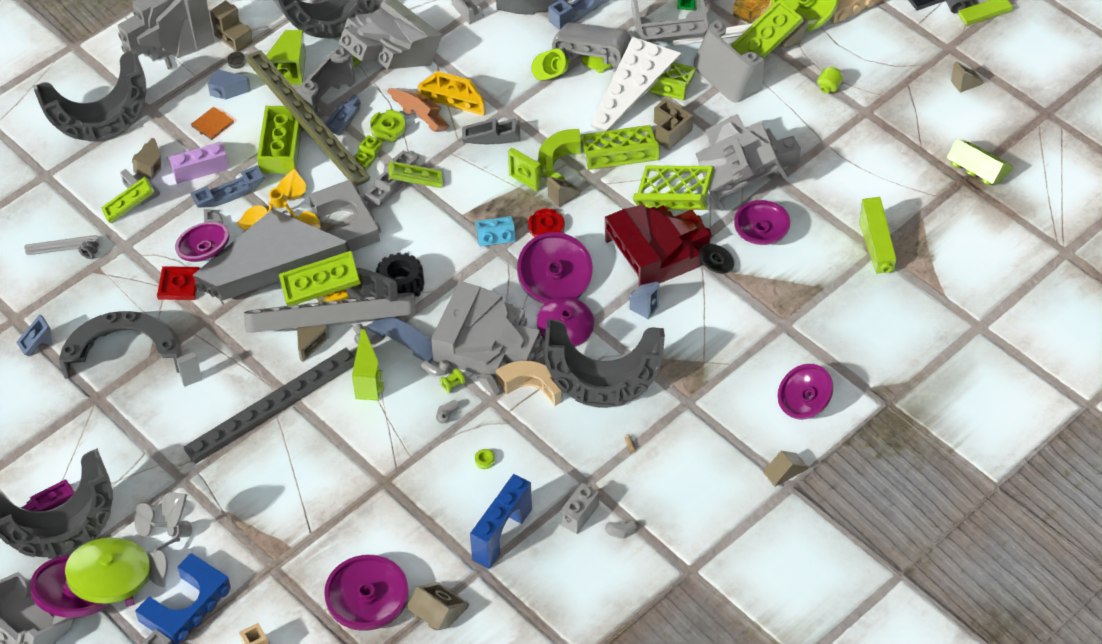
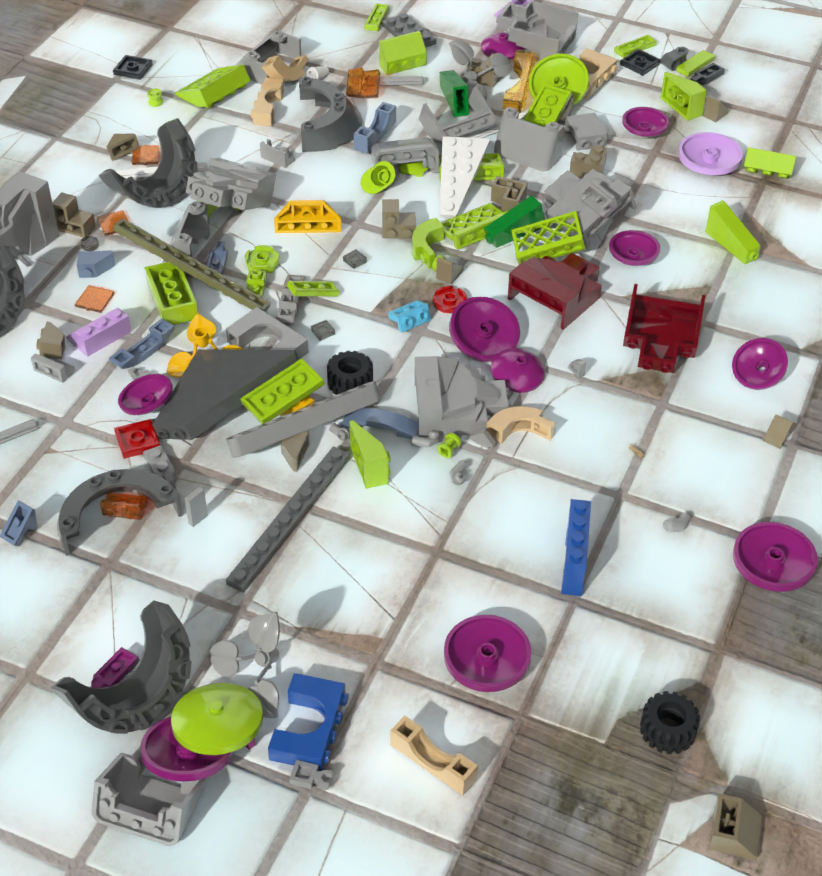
camera: 25 degrees left, 5 degrees down
(87, 249) = (31, 433): dark grey bush -> none
(127, 200) = (50, 379): lime tile -> none
(133, 346) = (124, 506): none -> clear orange bracket
(184, 317) = (160, 464): none -> light grey hinge
(266, 40) = (108, 220): none -> clear orange piece
(289, 56) = (143, 216): lime slope -> none
(377, 285) = (342, 382): dark grey slope -> none
(404, 221) = (323, 330): none -> clear smoke tile
(419, 104) = (278, 234): nougat slope -> none
(436, 605) = (558, 644): dark tan slope -> none
(478, 151) = (354, 259): none -> clear smoke tile
(484, 459) = (518, 502): lime tile -> none
(491, 132) = (359, 240): dark grey slope -> none
(524, 169) = (409, 259): lime tile -> none
(536, 122) = (395, 223): none -> dark tan brick
(579, 508) = (632, 516): light grey hinge -> none
(597, 381) = (592, 403): dark grey windscreen -> none
(624, 338) = (577, 367): none -> light grey tile
(645, 299) = (576, 331): sand blue slope -> none
(665, 152) = (523, 214): none -> green slope
(686, 593) = (775, 556): none -> magenta dish
(716, 258) = (614, 285): pearl dark grey dish -> none
(730, 322) = (662, 330): none -> dark red panel
(780, 111) = (584, 163): none -> dark tan brick
(802, 66) = (586, 130): none -> light grey panel
(830, 79) = (615, 135): lime head -> none
(872, 72) = (645, 121): none -> magenta dish
(919, 132) = (710, 153): none -> lavender dish
(935, 53) = (683, 95): none -> lime slope
(985, 30) = (708, 74): none -> black hinge

